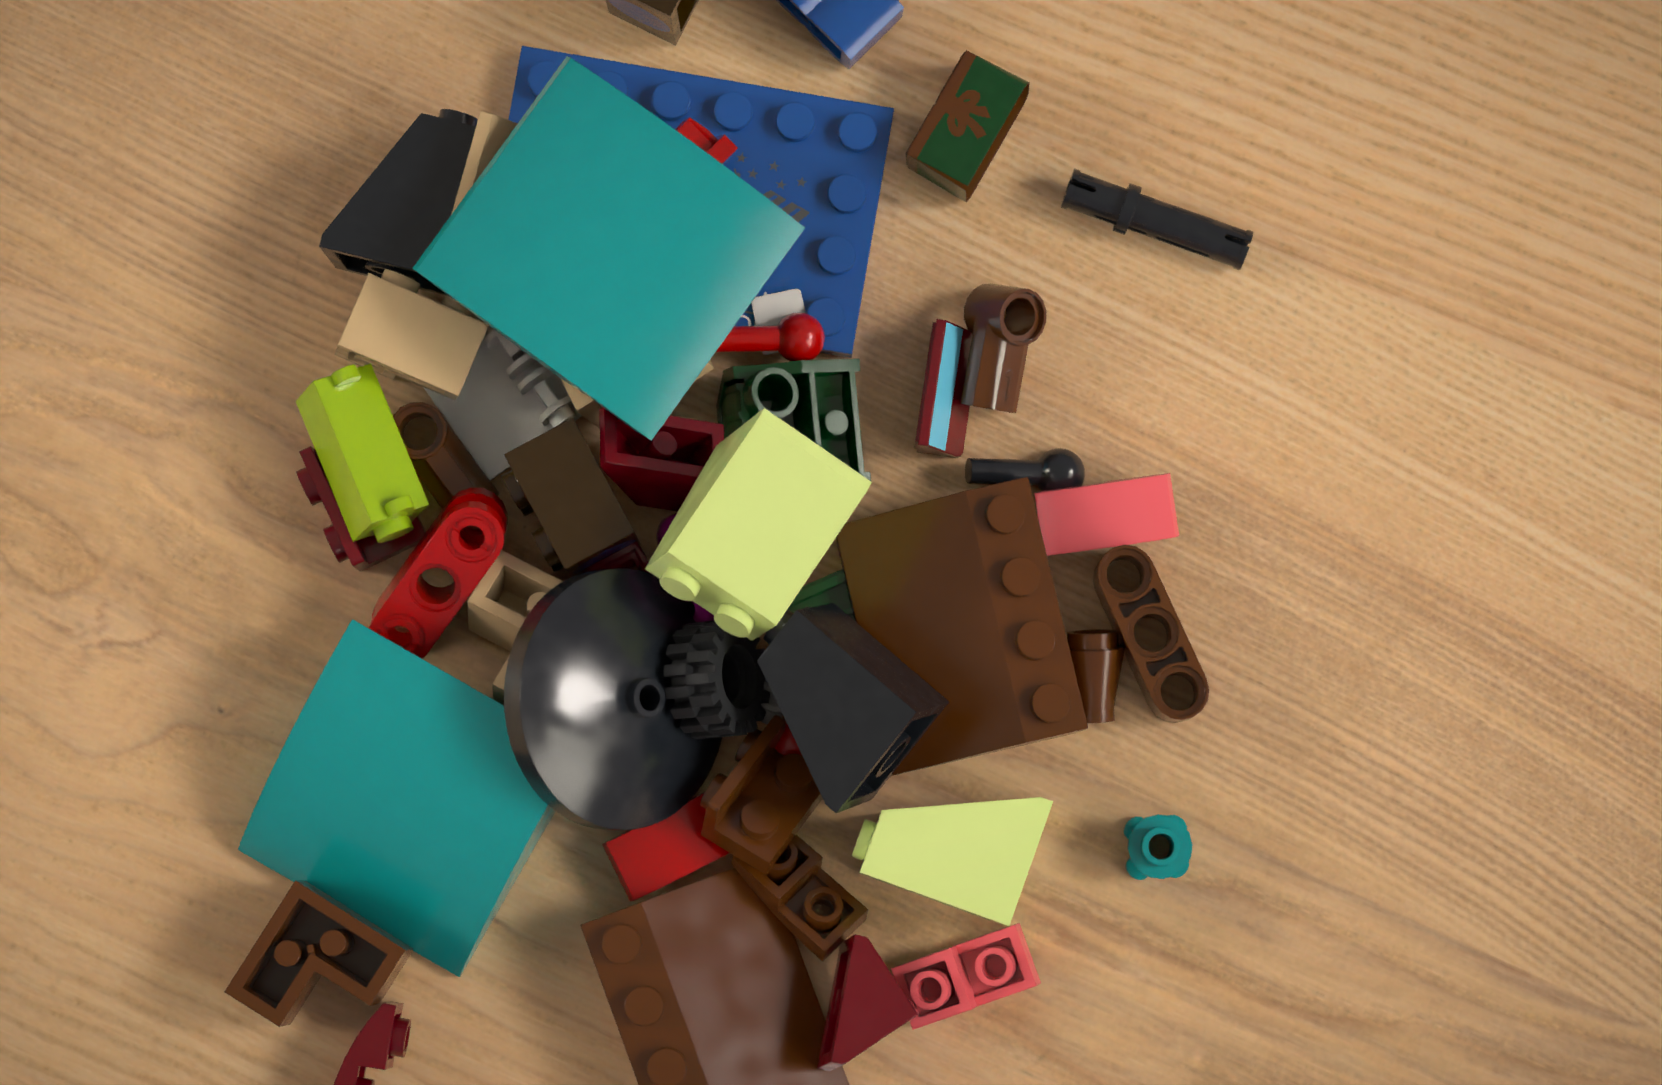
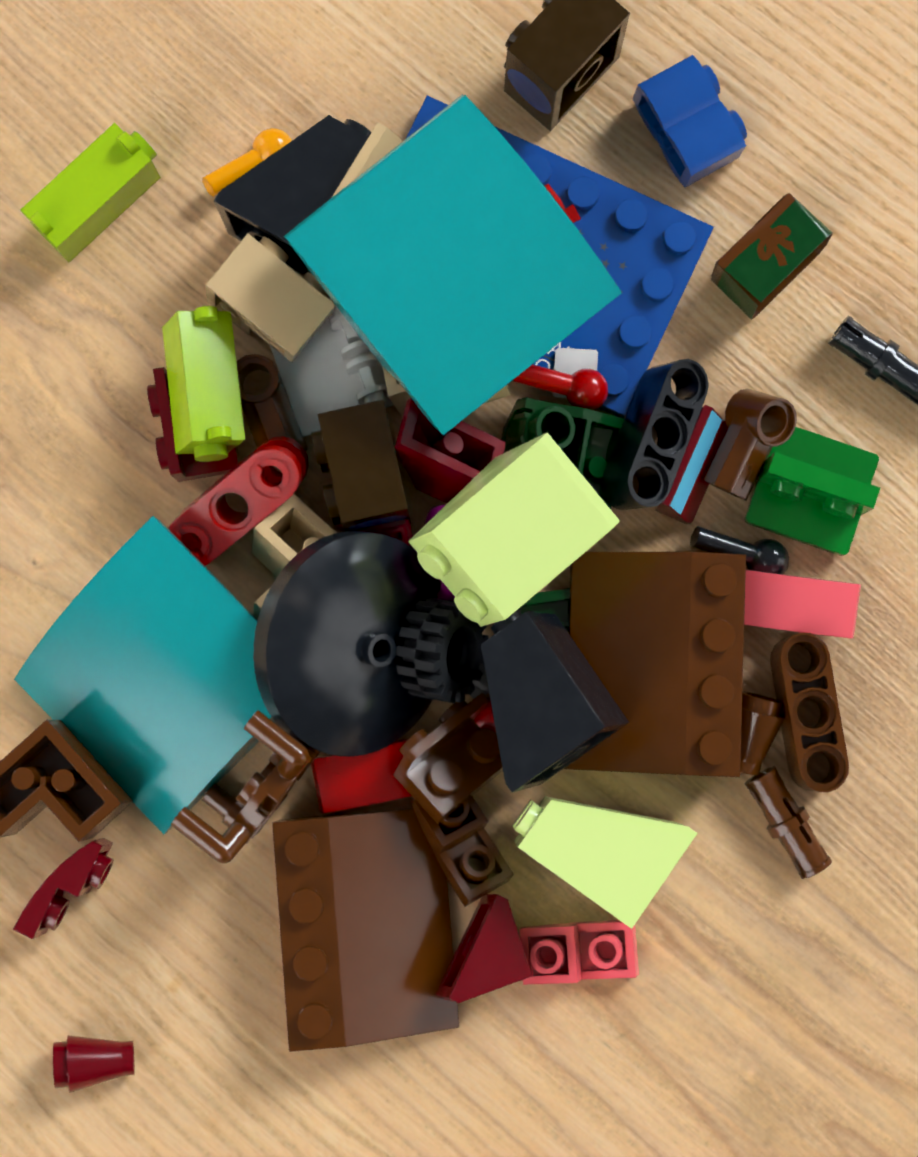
camera: 15 degrees right, 0 degrees up
(168, 264) = (93, 191): none -> lime brick
(356, 159) = (264, 145): none -> light orange bar
(556, 902) = (257, 799): none -> reddish brown plate
(871, 390) = (674, 422): none -> black beam
(1089, 380) = (814, 491): none -> green bracket
(1141, 862) = (755, 878): teal brick -> none
(1161, 765) = (788, 823): none -> reddish brown pin

